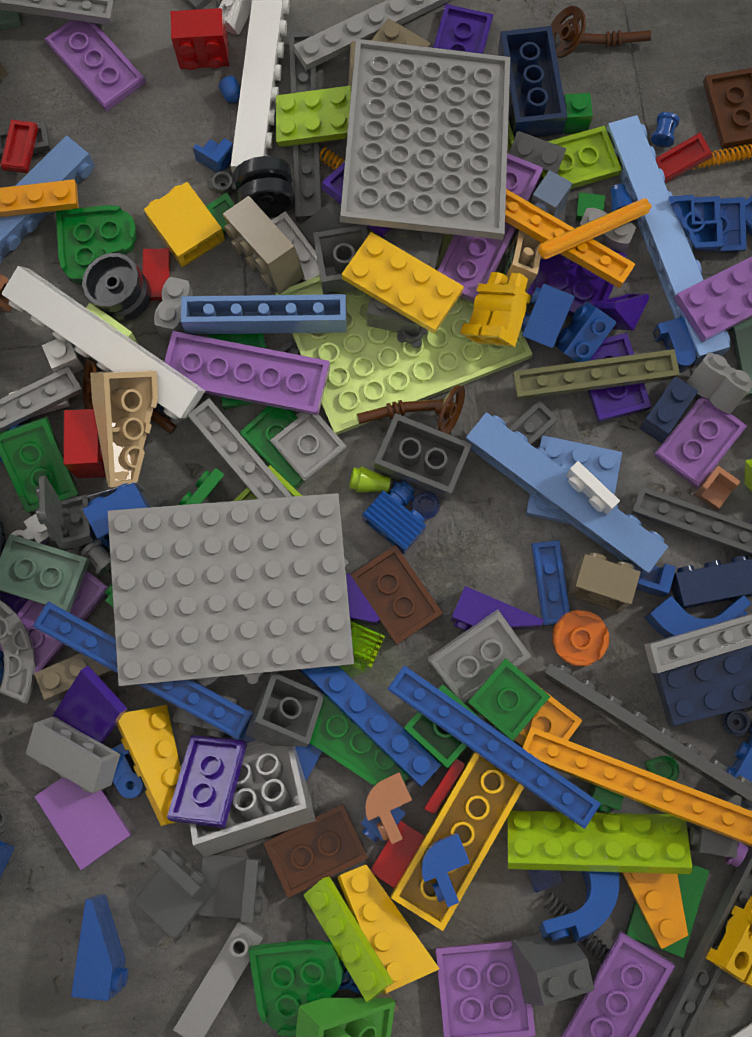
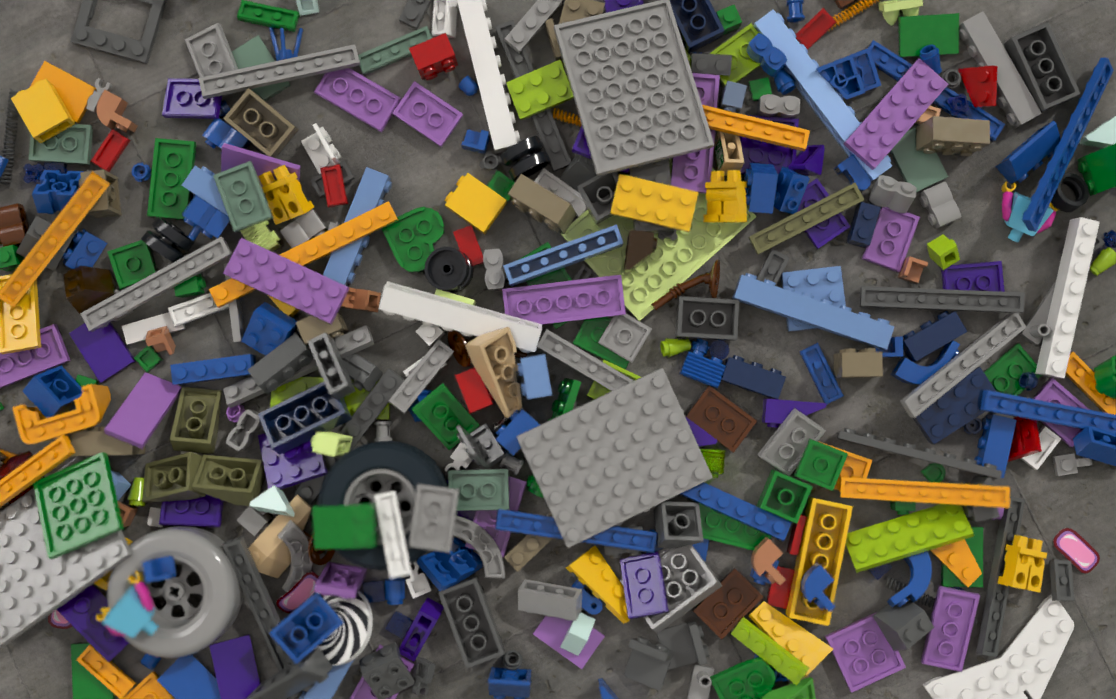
camera: 20 degrees left, 10 degrees up
(24, 98) = (320, 150): none -> white bracket
(90, 706) = (551, 566): dark purple tile -> none
(93, 816) = (578, 634): none -> light aqua slope
(141, 27) = (392, 51): none -> sand green tile
(168, 450) = (535, 377): none -> medium blue brick
(169, 105) = (427, 114): none -> medium lavender plate
(362, 337) = (639, 248): none -> dark brown slope
(456, 554) = (753, 377): none -> dark blue brick
(494, 747) = (822, 499): blue tile -> none
(580, 637) = (853, 405): orange tile -> none
(584, 481) = (839, 310): white plate -> none
(594, 228) = (773, 114): light orange axle -> none
(610, 162) = (762, 51): none -> blue brick

